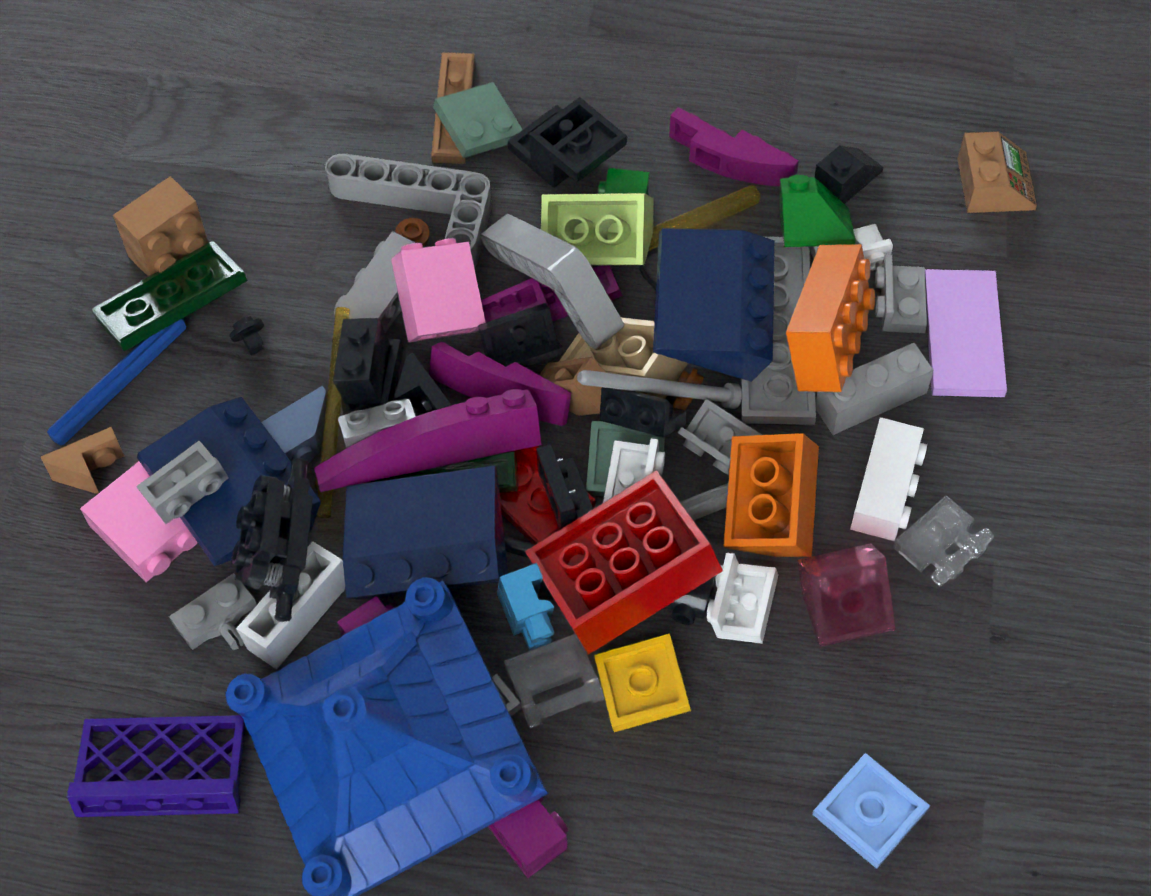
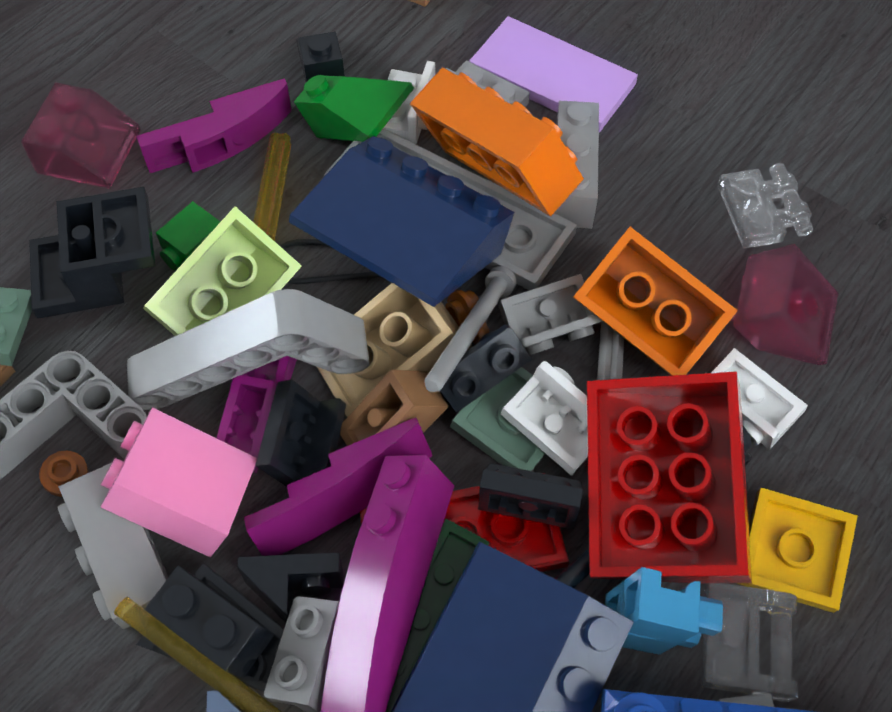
camera: 60 degrees left, 0 degrees up
(660, 77) = (79, 137): none -> clear pink slope
(889, 479) = (679, 207): white brick -> none

